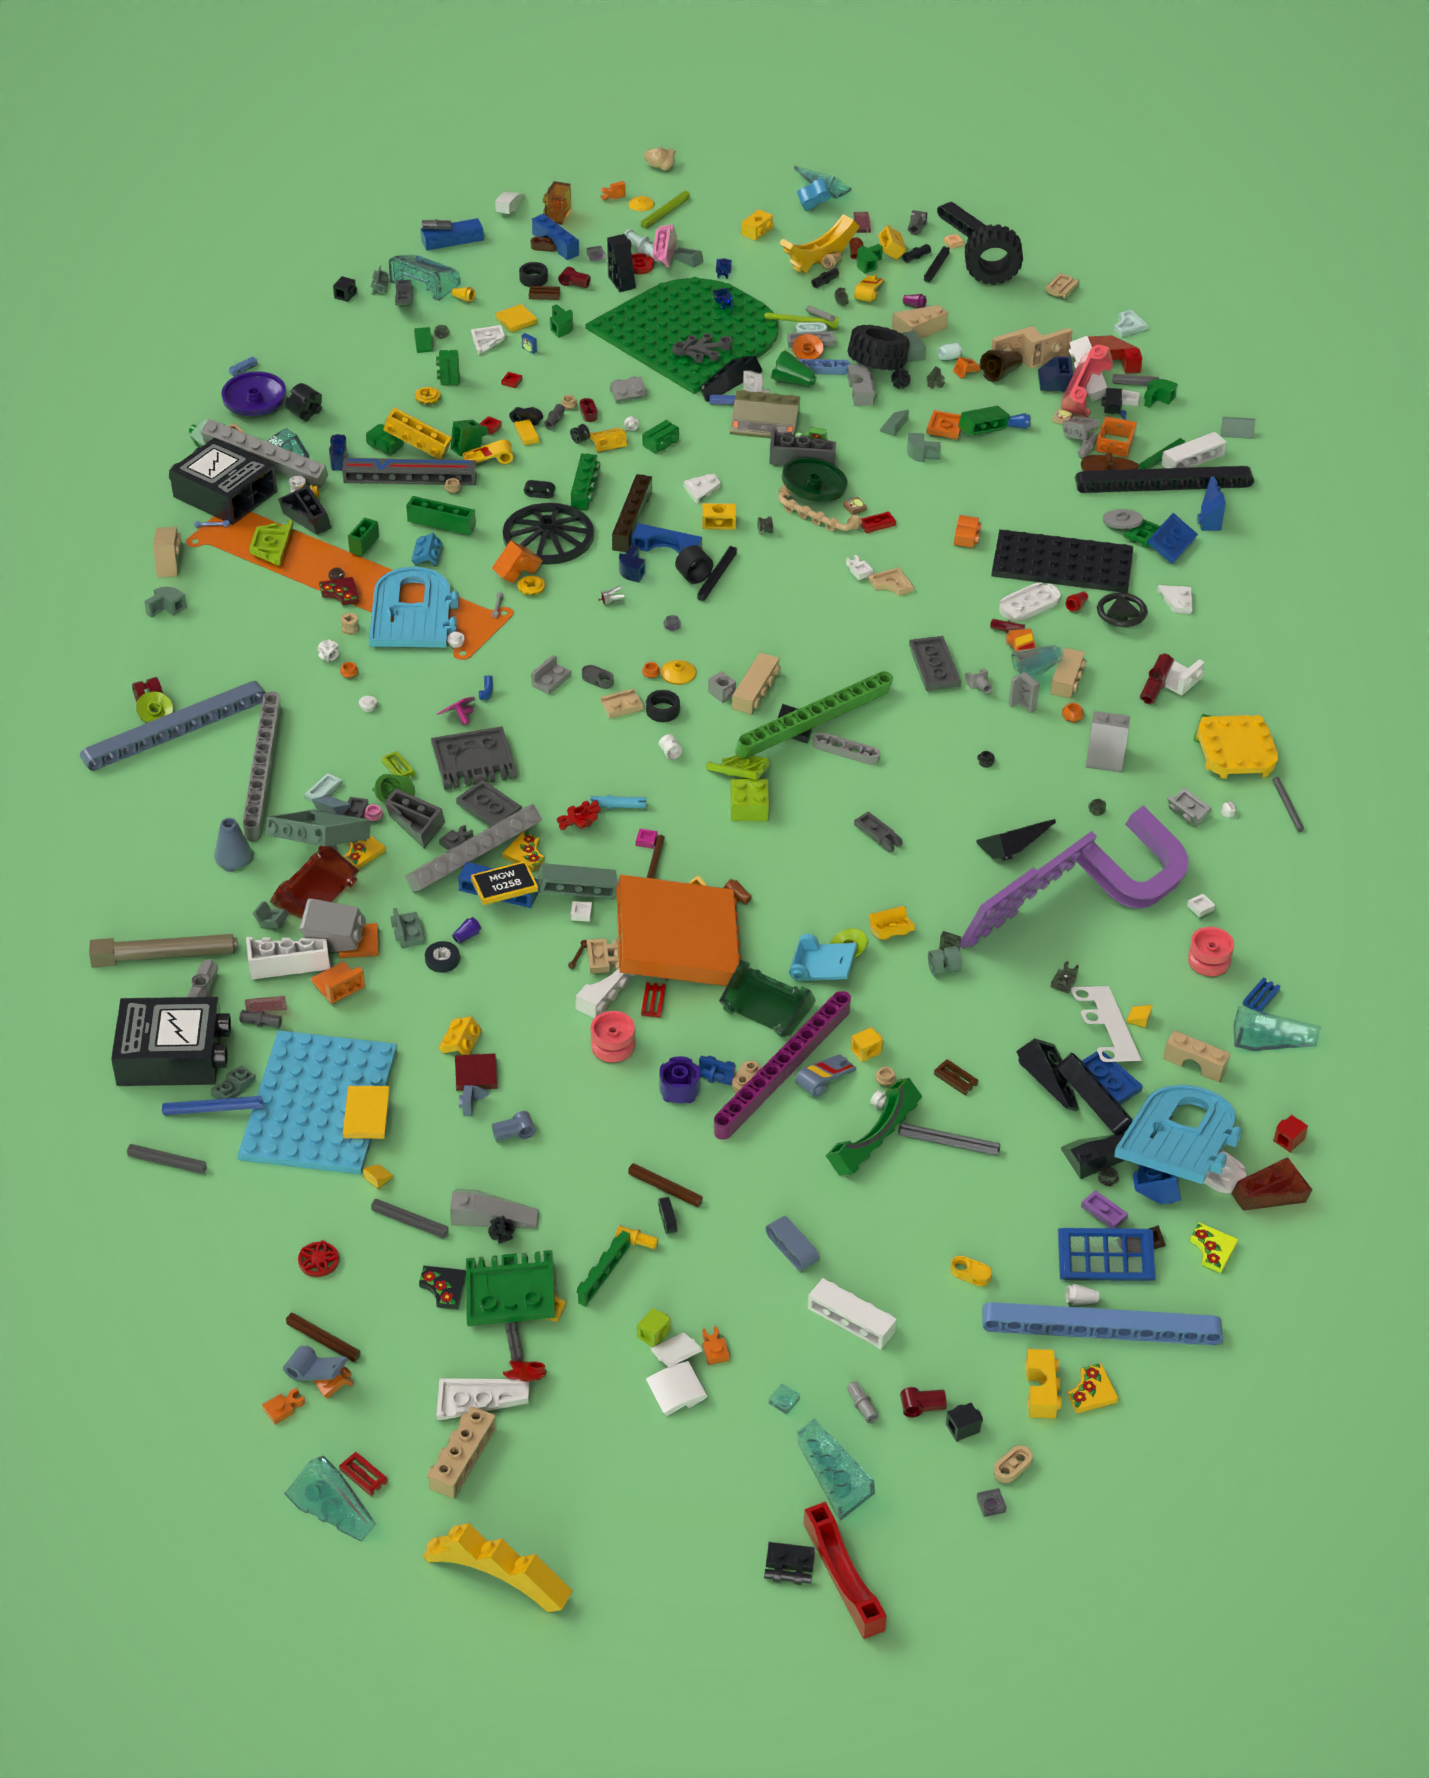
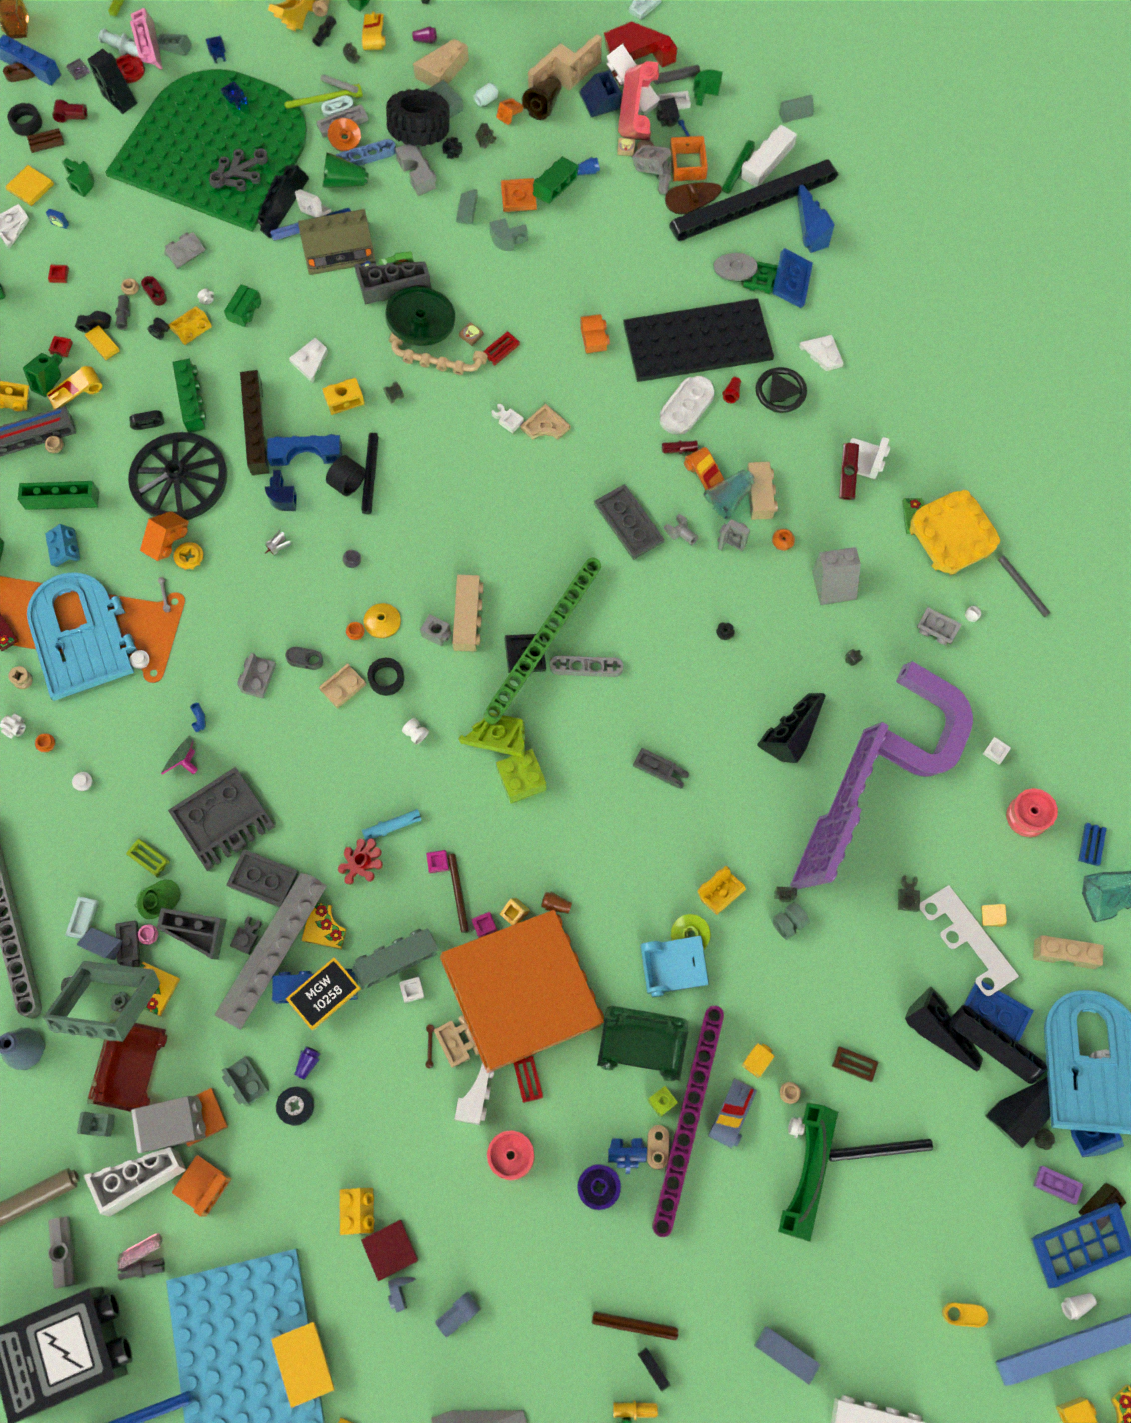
camera: 20 degrees left, 25 degrees up
(235, 1084) = (148, 1372): sand green slope -> none
(765, 1044) = (662, 1101): none -> lime brick

